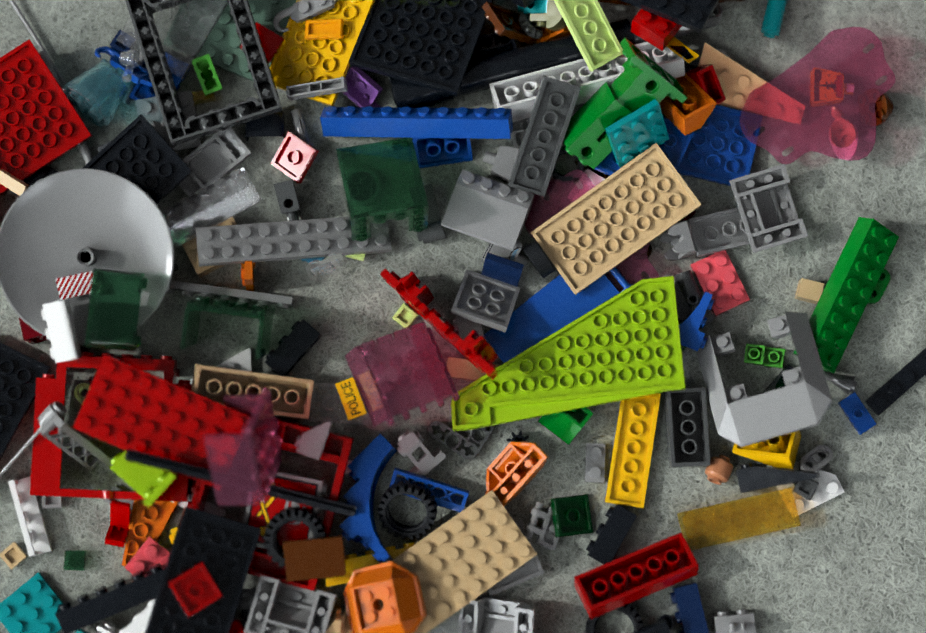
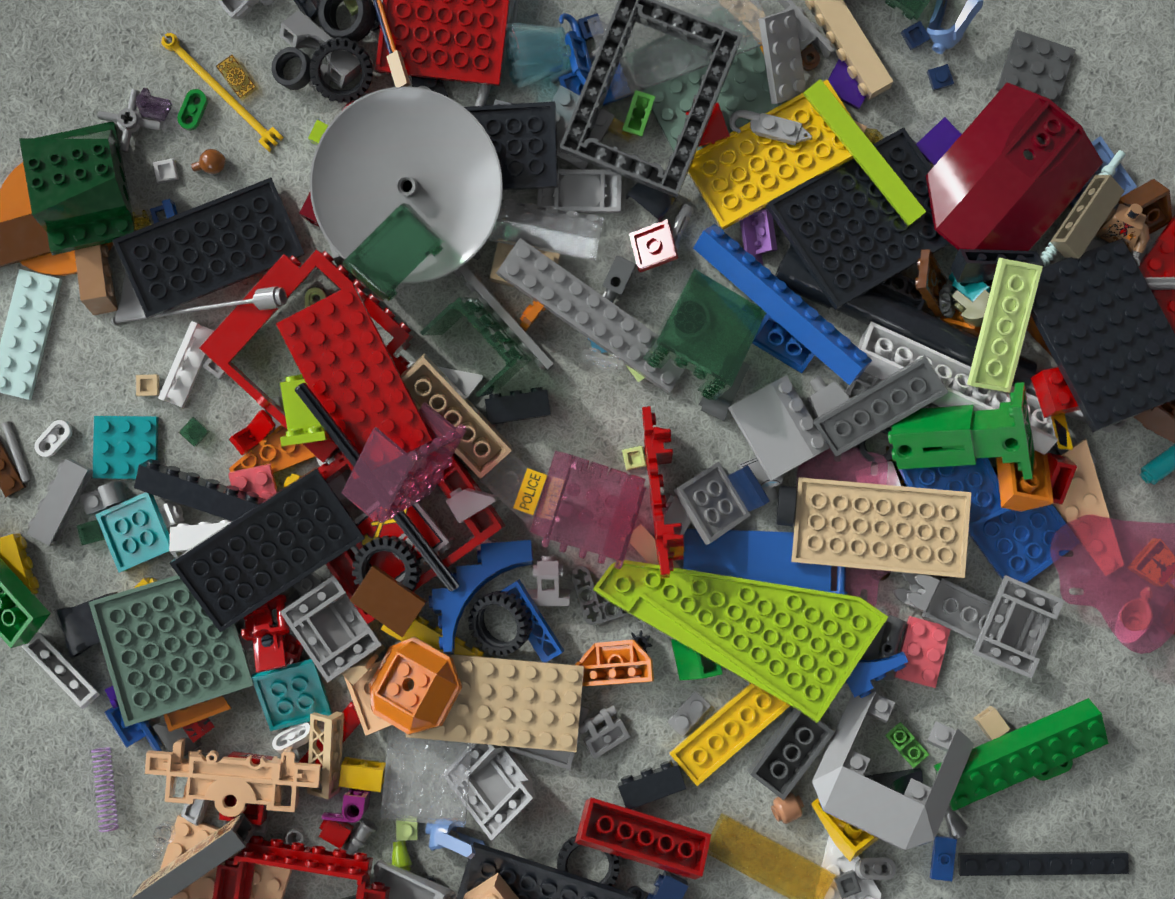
camera: 40 degrees right, 5 degrees up
(61, 331) = (334, 233): white slope -> none
(74, 285) = (377, 202): sticker -> none
(88, 447) = (280, 348): light grey fence -> none
(129, 59) = (584, 47): clear bar -> none
(195, 589) = (267, 544): red tile -> none
(316, 88) = (721, 203): light grey piece -> none
(324, 29) = (770, 157): light orange tile -> none
(571, 515) = (632, 741): dark green tile -> none
(637, 132) = (962, 471): teal plate -> none
(761, 477) = (817, 845): black slope -> none

